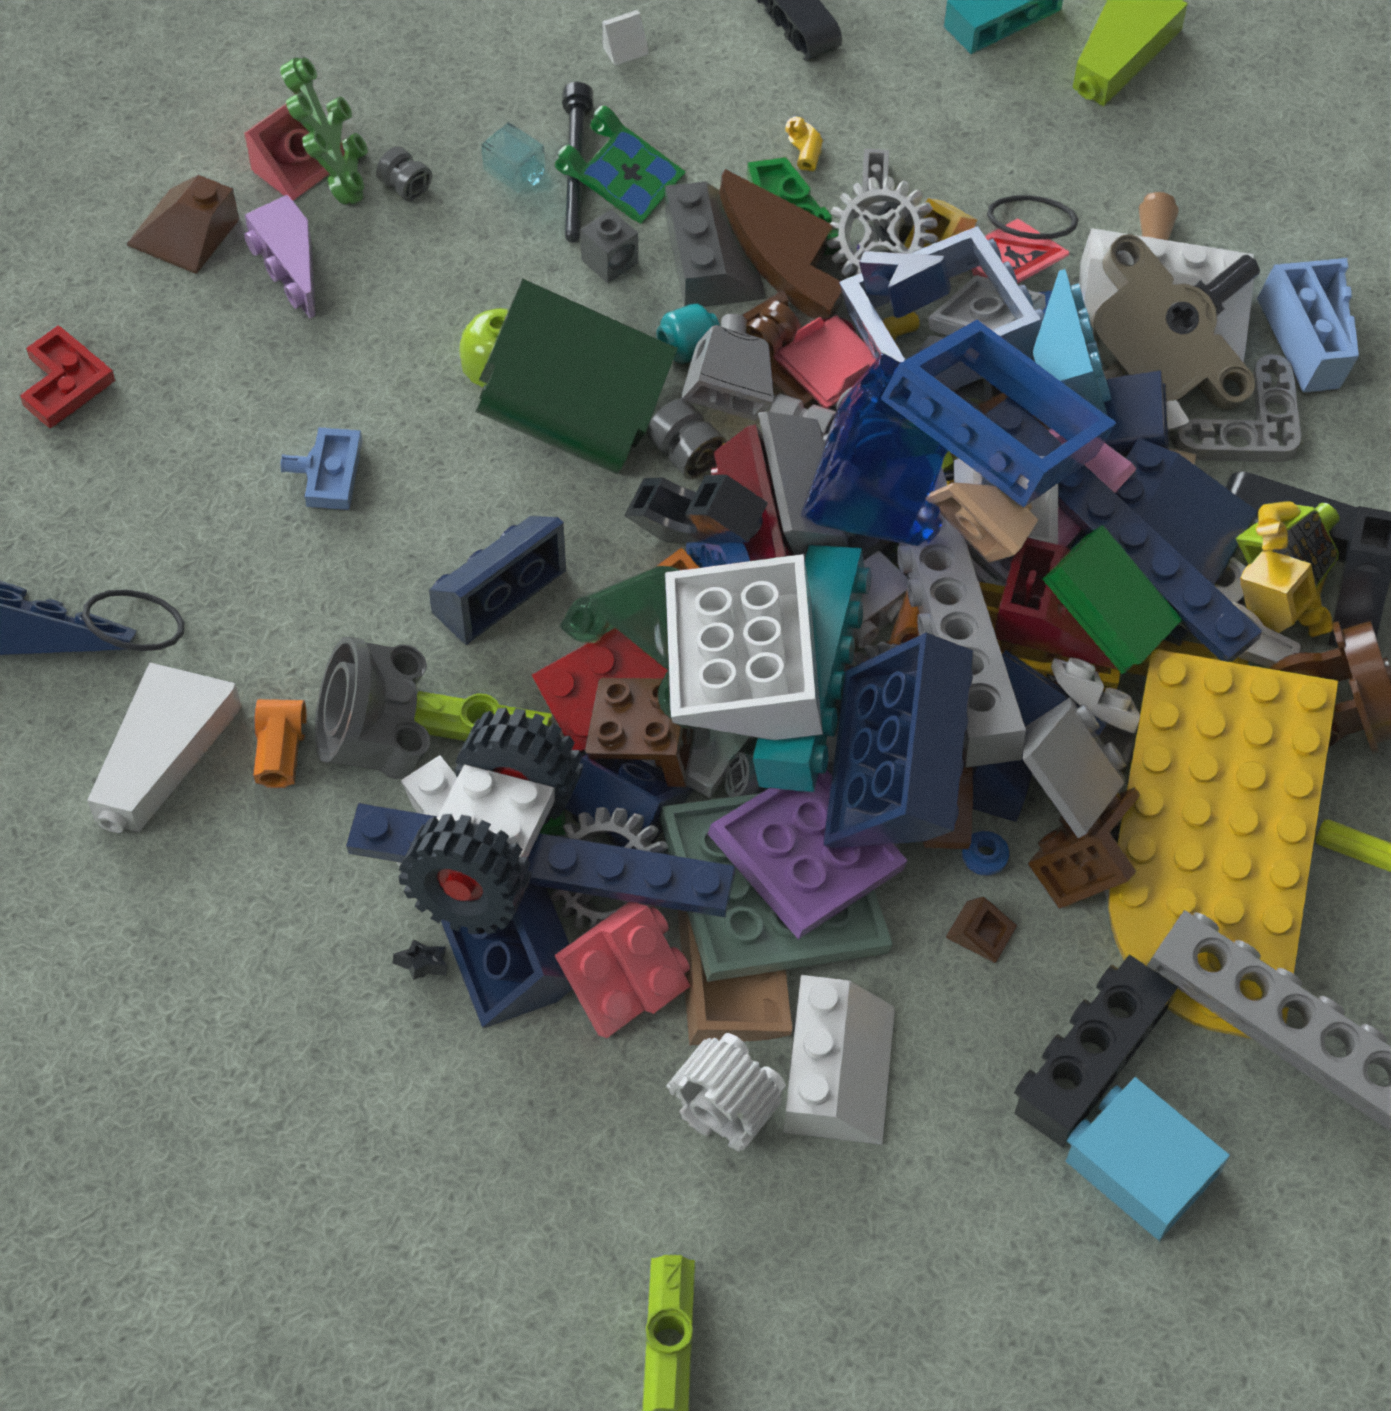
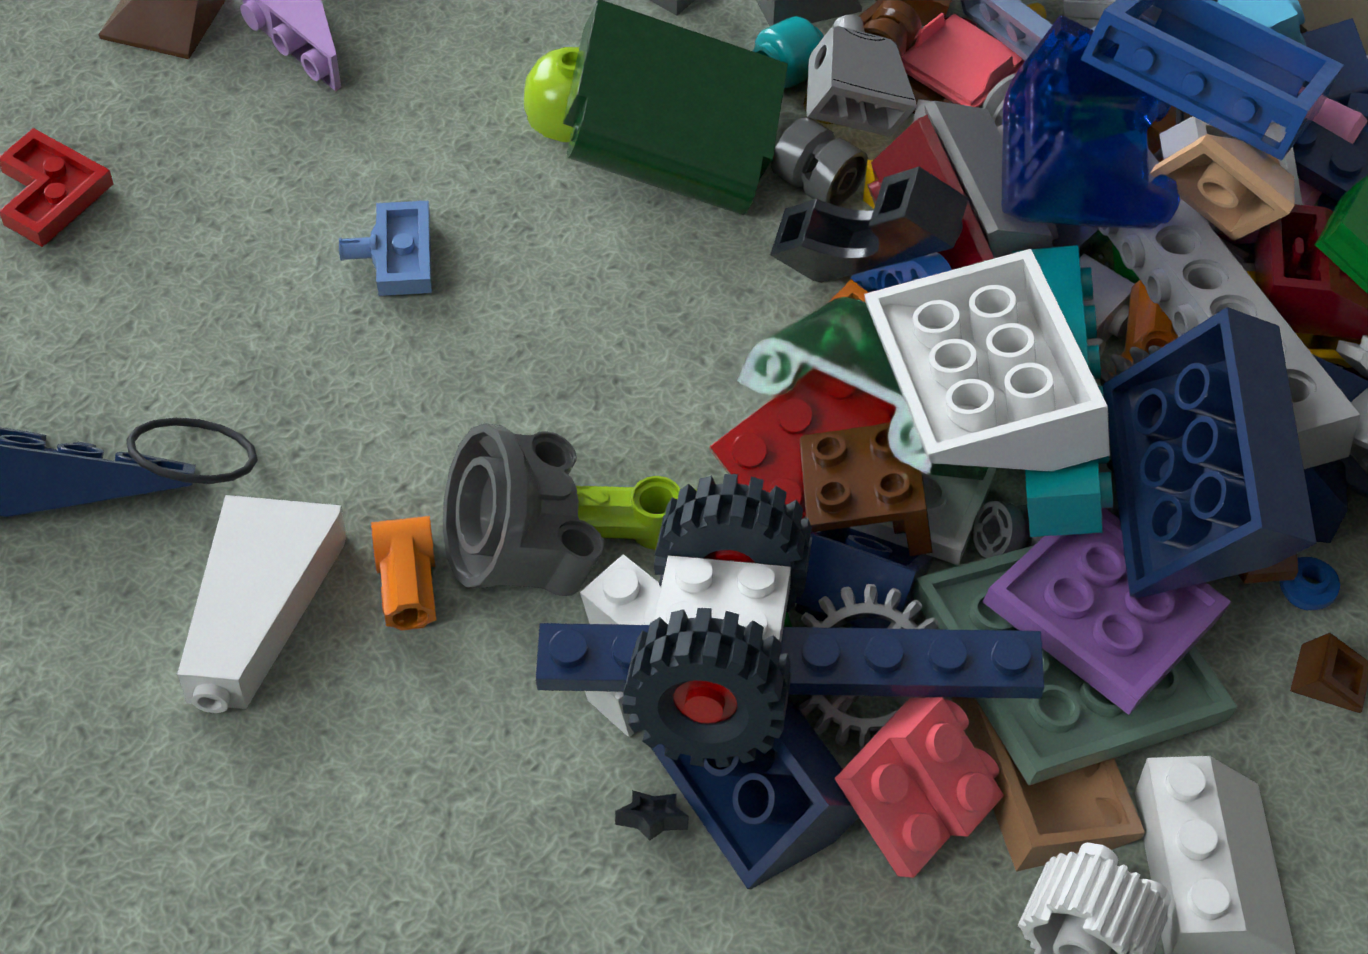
camera: 10 degrees left, 5 degrees down
(500, 577) = (638, 341): dark blue slope -> none

